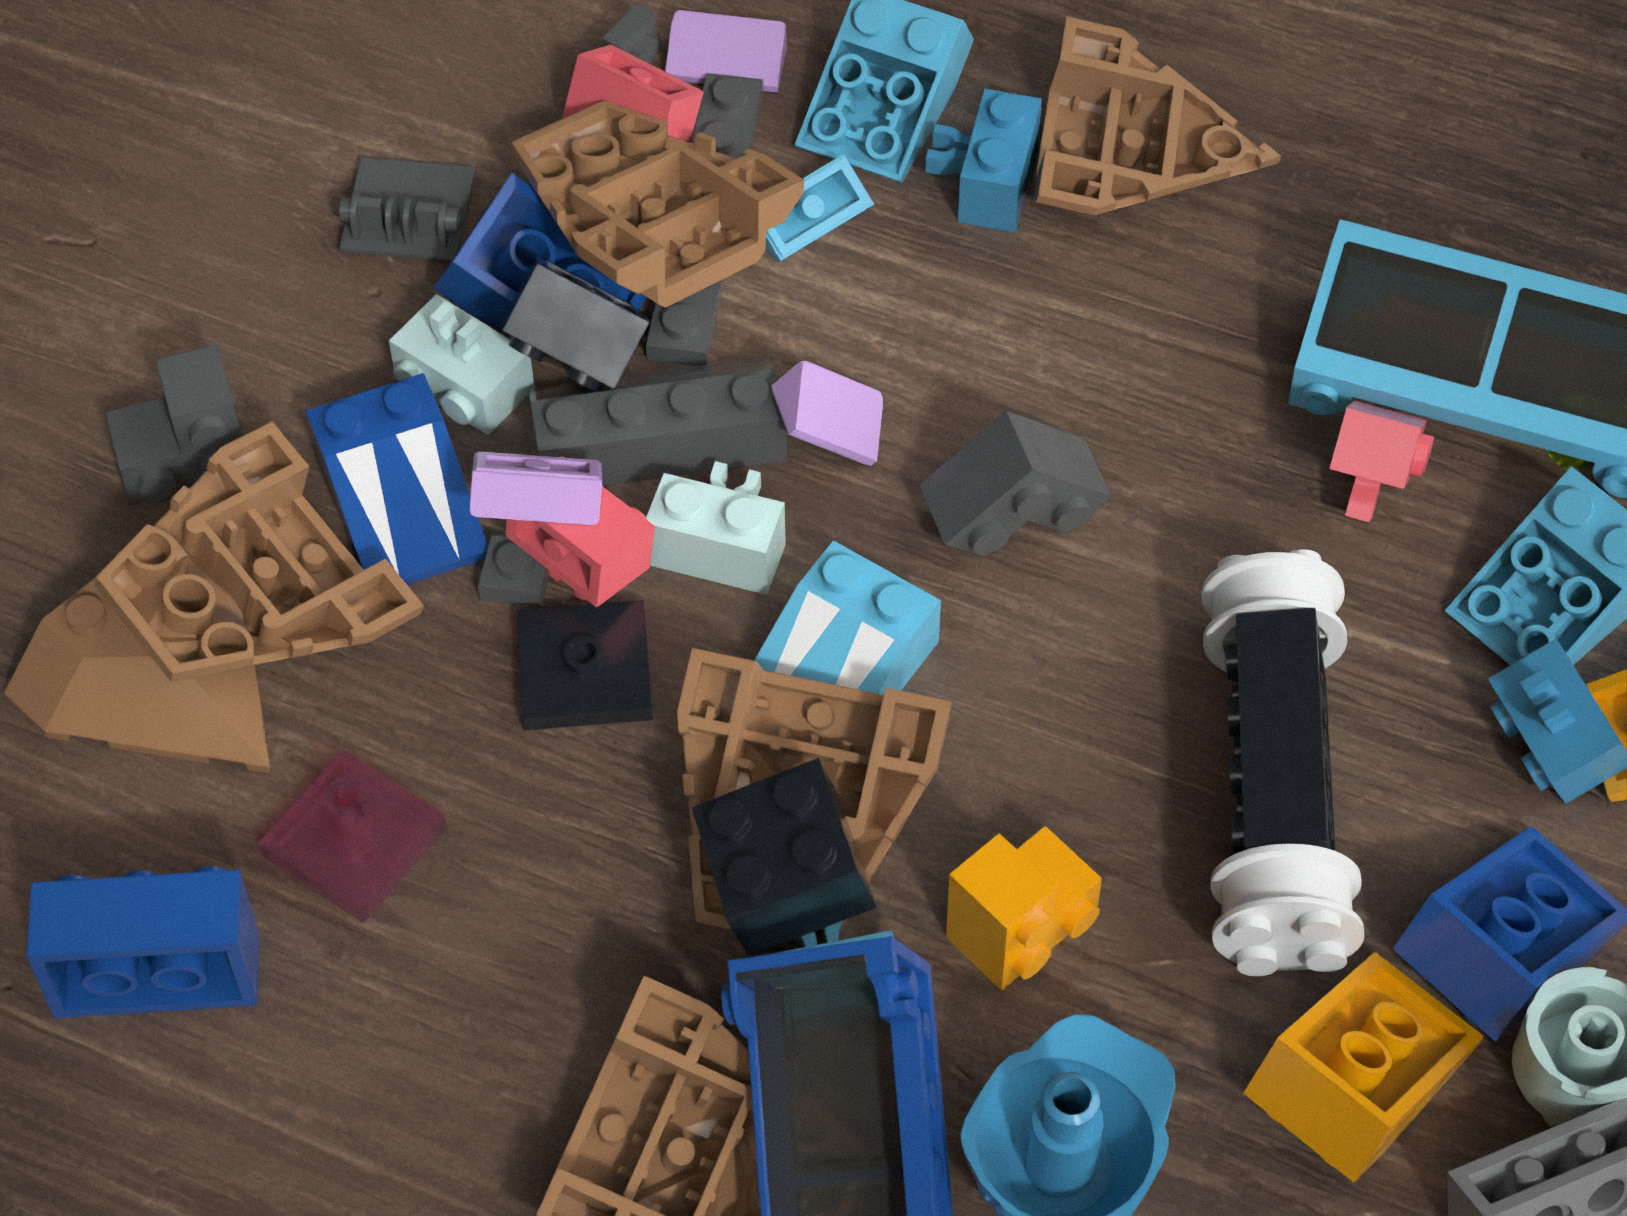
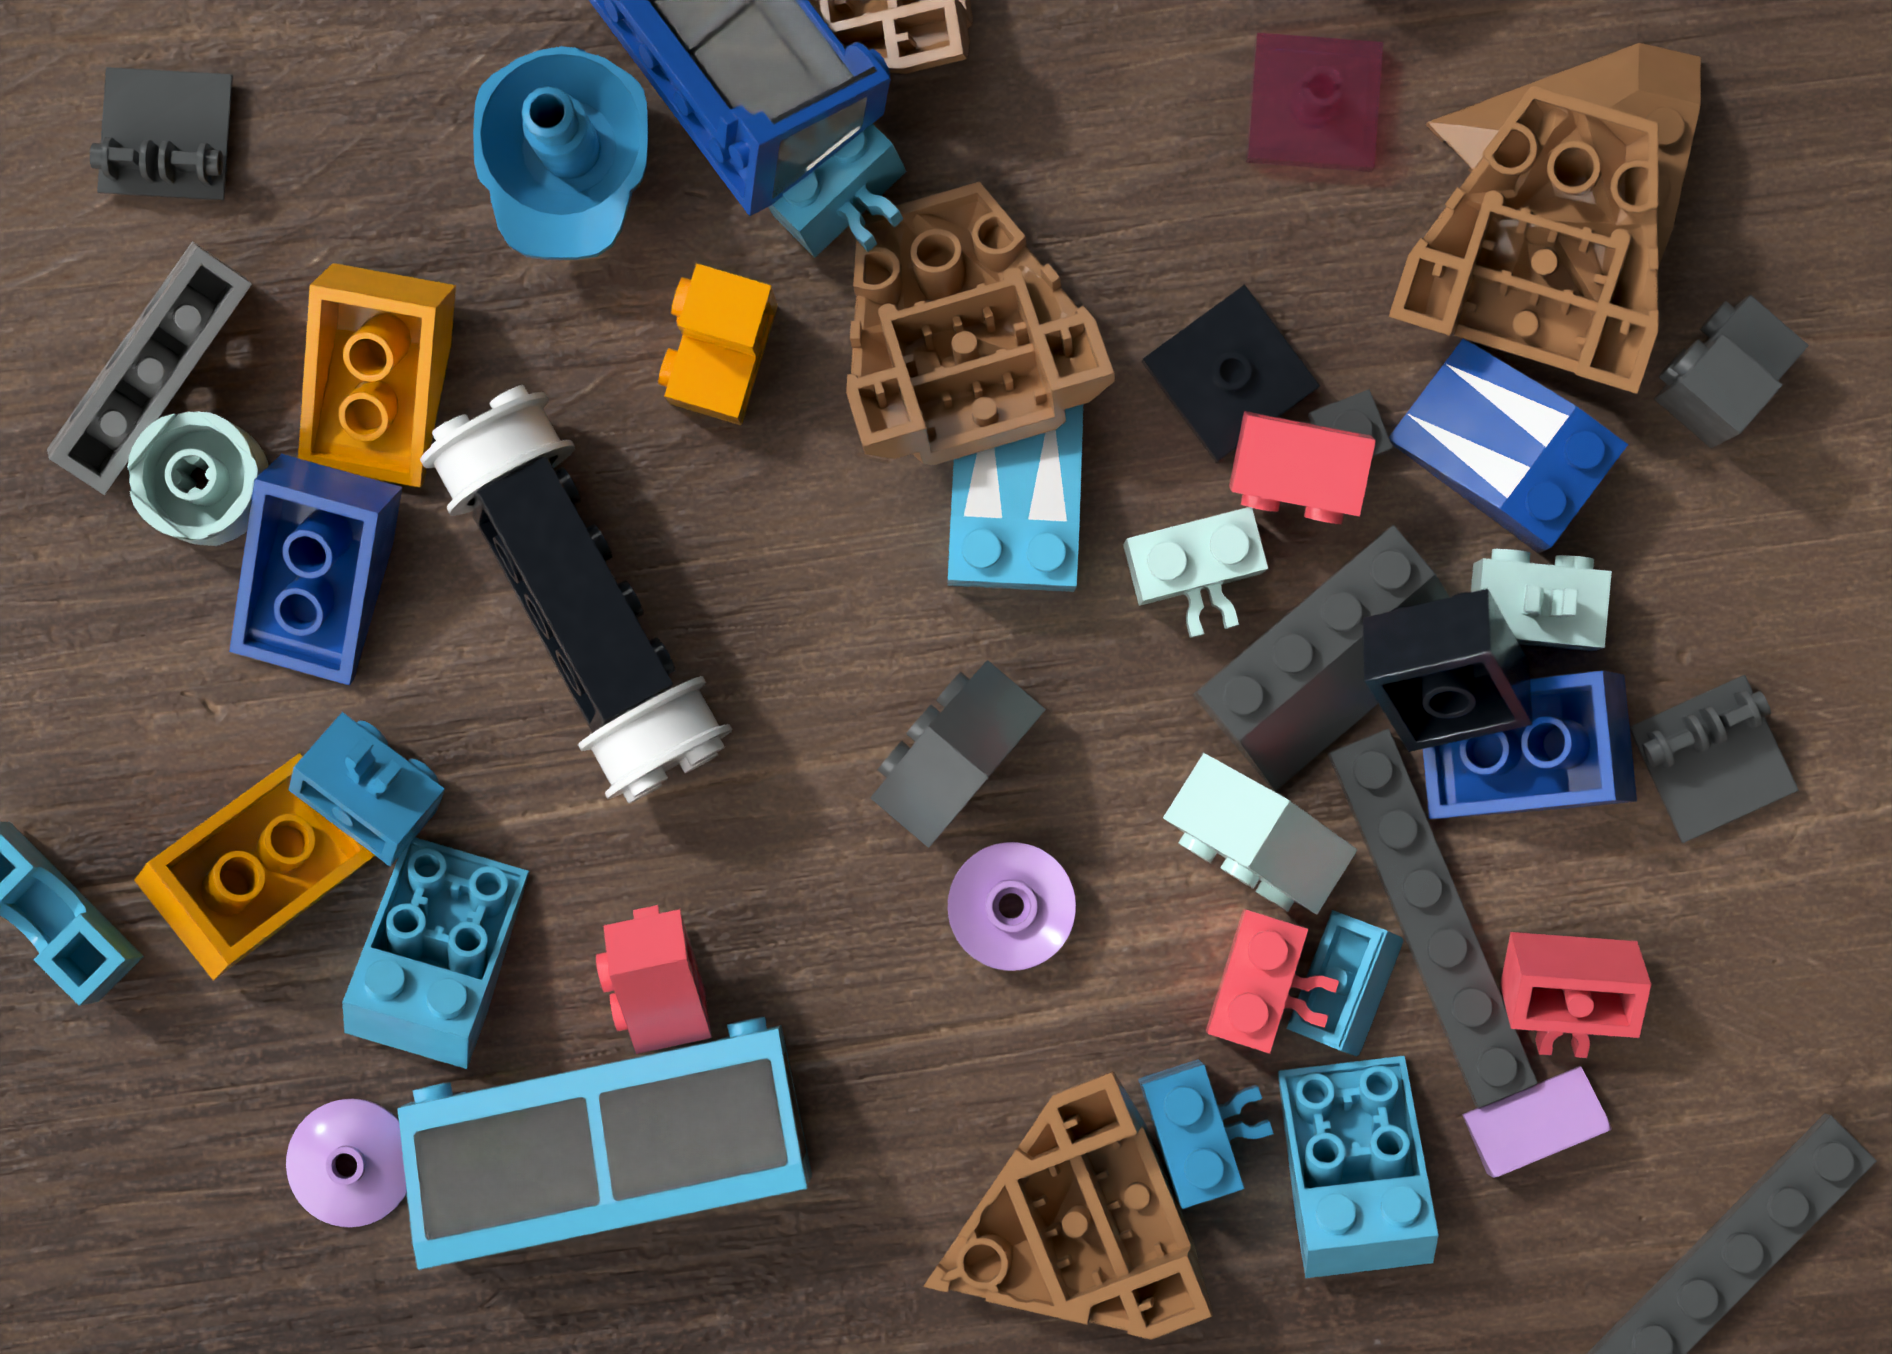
camera: 150 degrees right, 30 degrees up
(536, 488) = (1355, 457): lavender slope -> none
(635, 33) = (1630, 1071): dark grey plate -> none
(651, 205) = (1474, 850): medium nougat wedge -> none
(783, 857) = (918, 228): black brick -> none
(809, 308) = (1258, 836): none -> light aqua brick
(830, 411) = (1165, 728): lavender slope -> none
(874, 226) = (1259, 982): none -> coral brick
(1046, 355) = (1020, 940): none -> lavender dish

